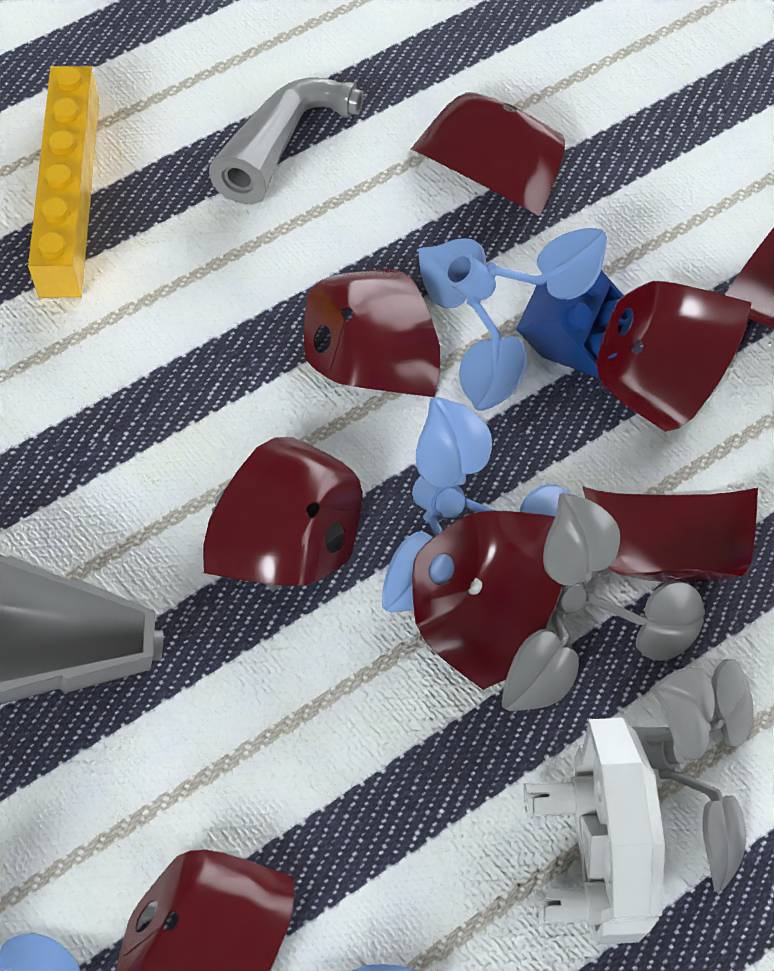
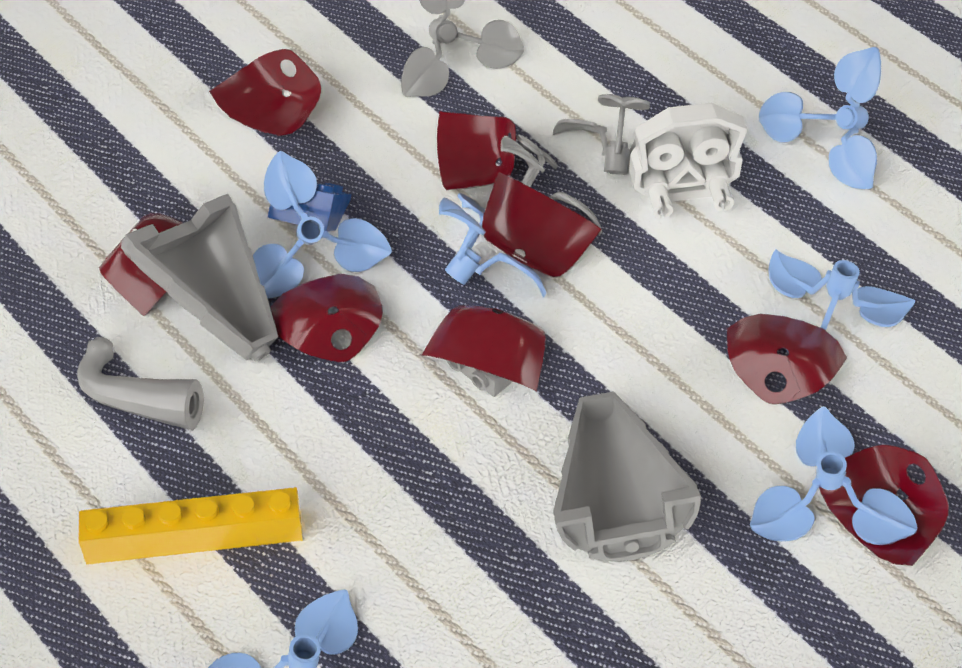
camera: 95 degrees left, 10 degrees down
(416, 171) = (210, 275): none -> light grey cone
(686, 349) = (335, 155): dark red piece -> none

